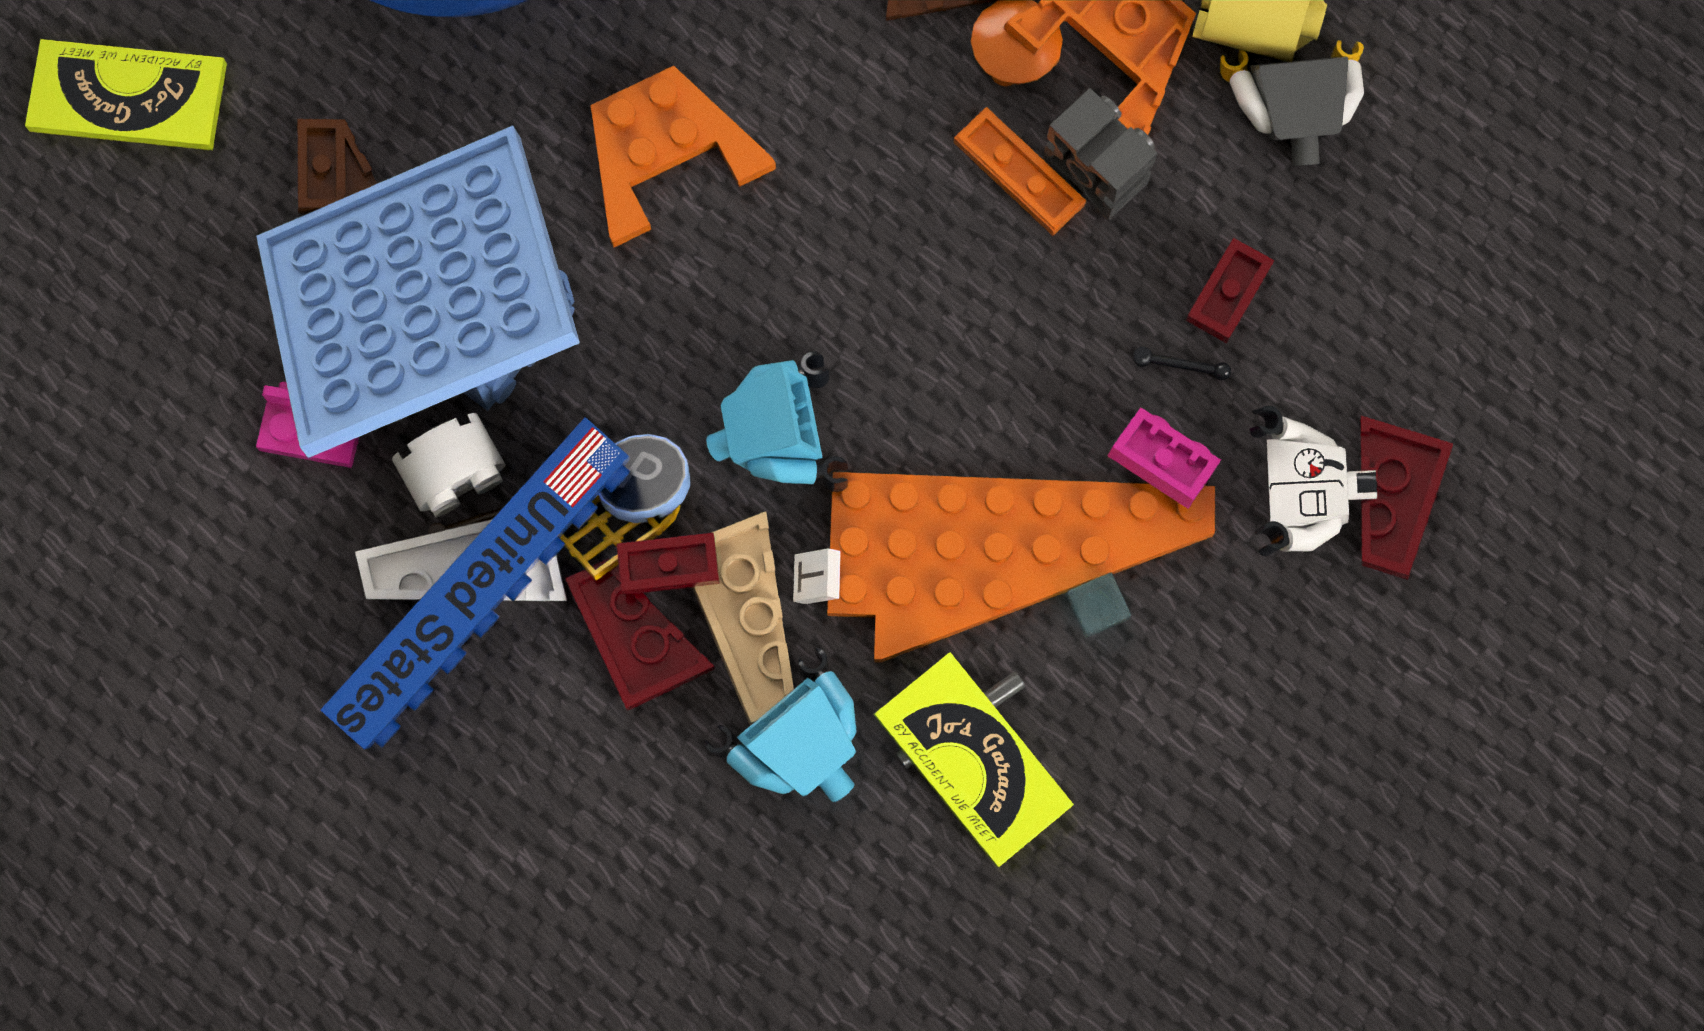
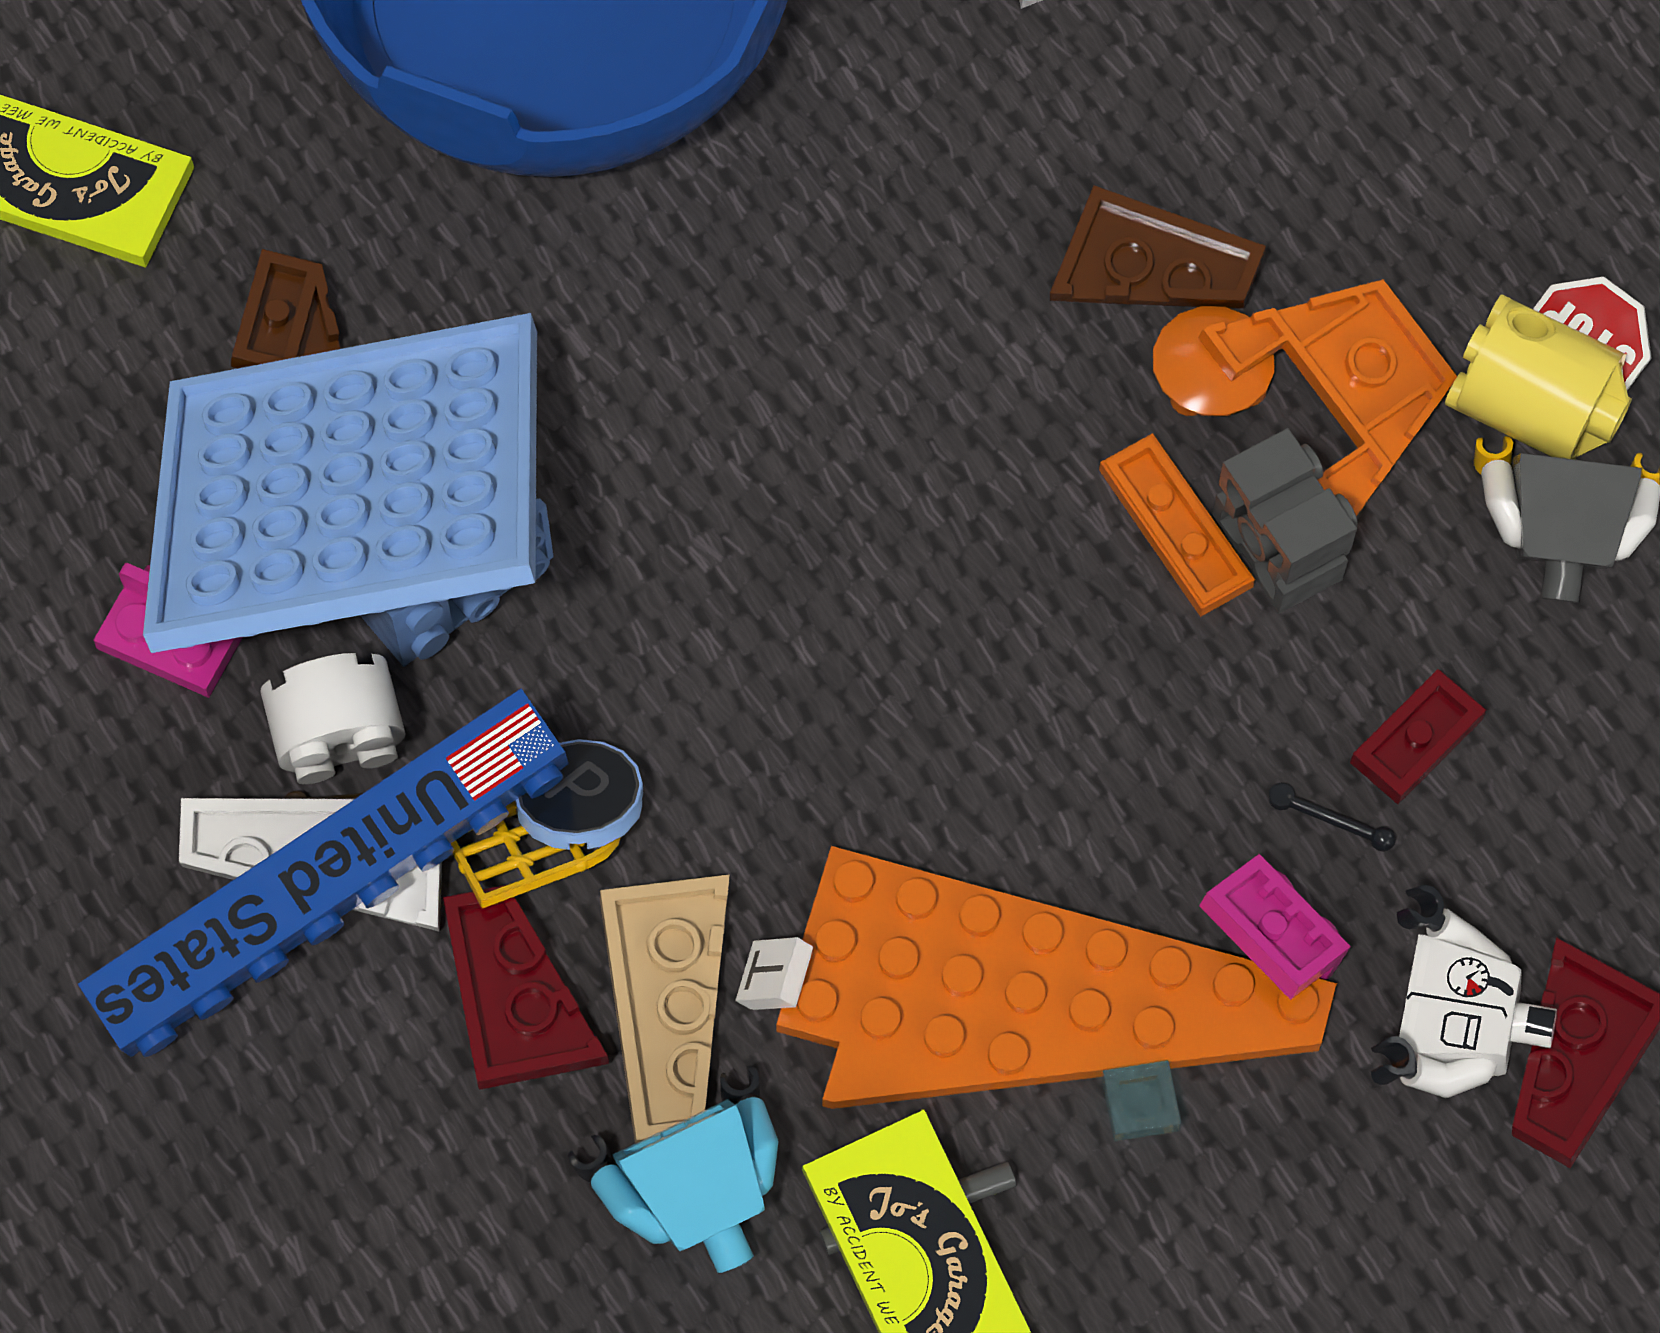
camera: 15 degrees right, 10 degrees down
(656, 129) = (715, 367): orange wing -> none
(668, 563) = (581, 906): dark red plate -> none
(774, 425) = (767, 766): medium azure torso -> none

